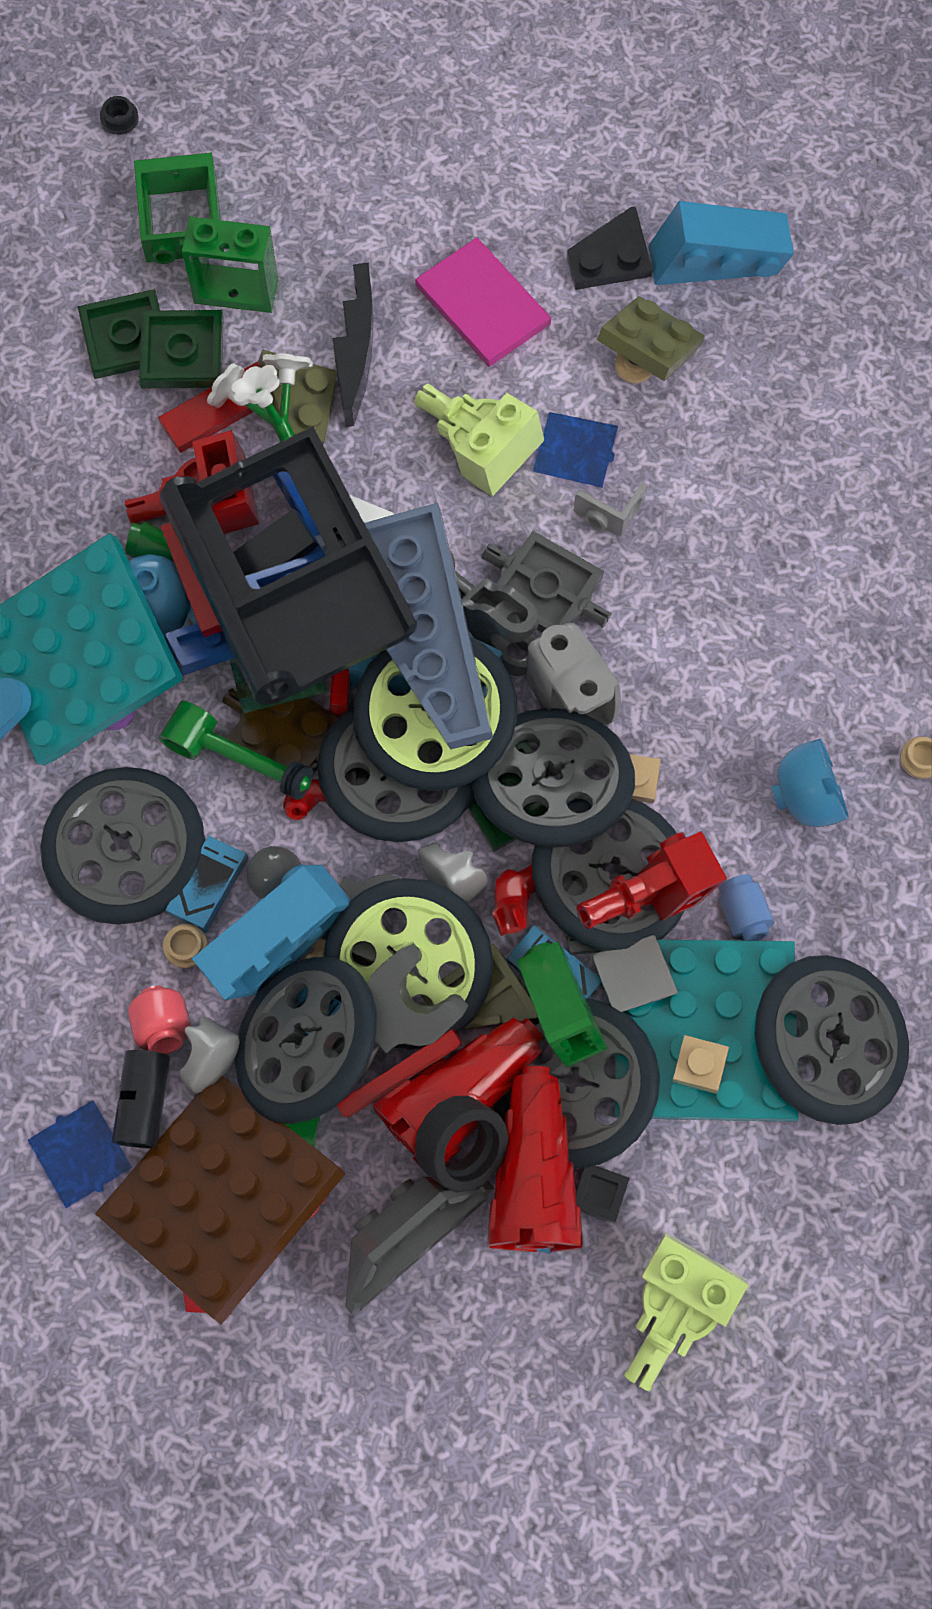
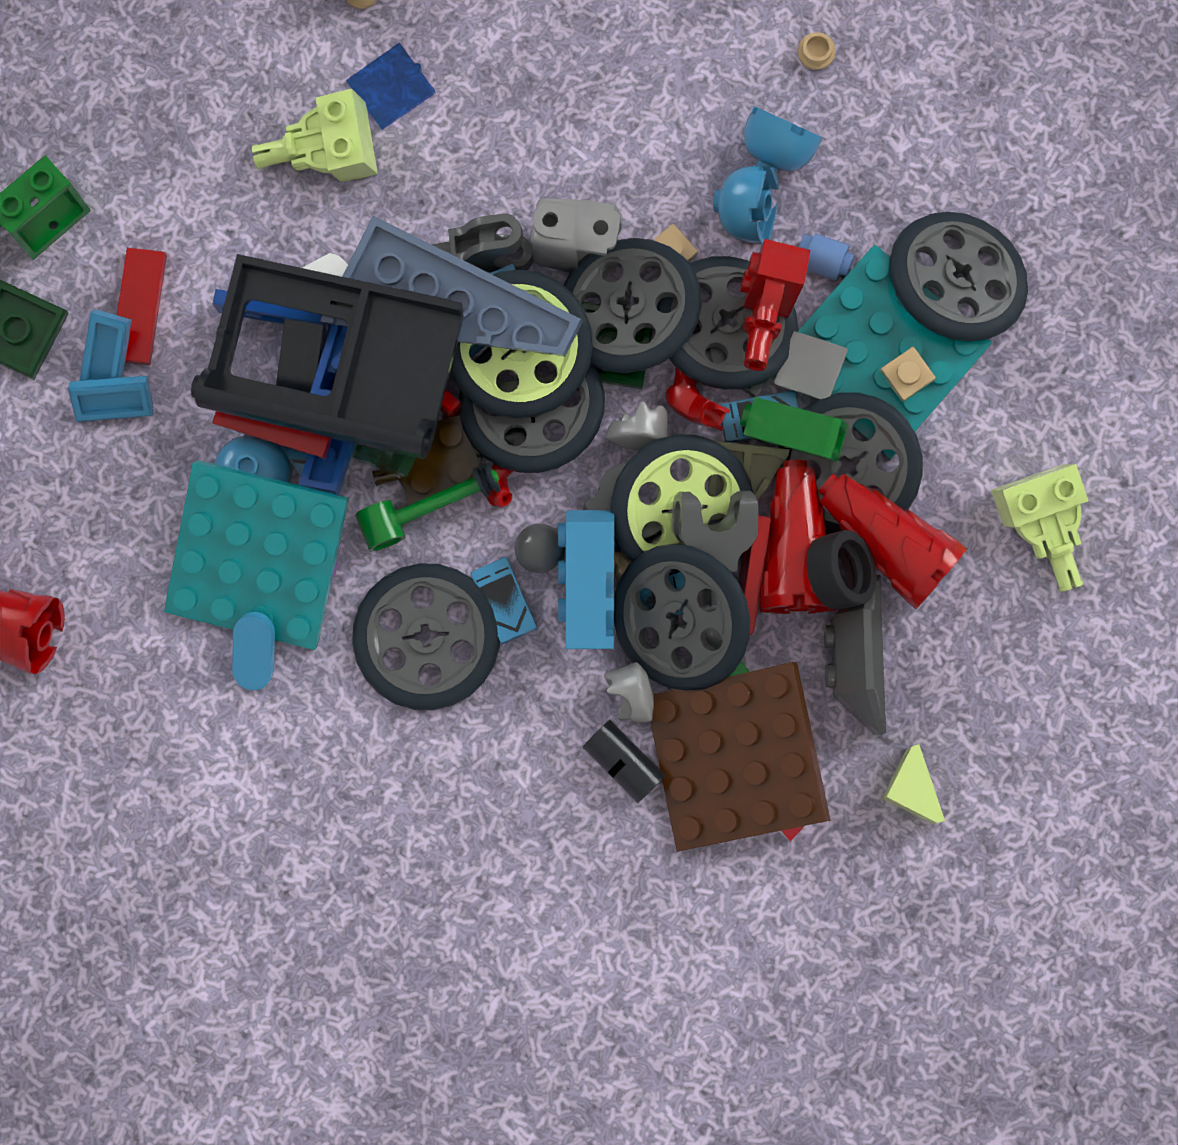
camera: 50 degrees left, 10 degrees up
(79, 1154) = (624, 832): clear blue piece -> none
(124, 443) = (111, 398): none -> dark azure tile
(146, 540) = (208, 441): green cone -> none
(158, 407) = (105, 346): none -> dark azure tile
(159, 1019) = (578, 706): coral head -> none
(181, 348) = (66, 295): dark green tile -> none
(183, 944) = (537, 649): tan plate -> none
(211, 457) = (191, 350): red brick -> none
(255, 388) = (168, 268): white plant -> none
(309, 398) = (182, 244): olive wing -> none
(321, 1384) = (913, 788): none -> yellowish green slope
(354, 351) = (181, 178): black slope -> none
(483, 301) = (216, 53): dark pink tile -> none
(552, 580) = (480, 187): dark grey plate -> none
(601, 1193) = (936, 507): black plate -> none
(603, 517) = (463, 111): light grey bracket -> none
(740, 800) = (745, 198): none -> dark azure cylinder

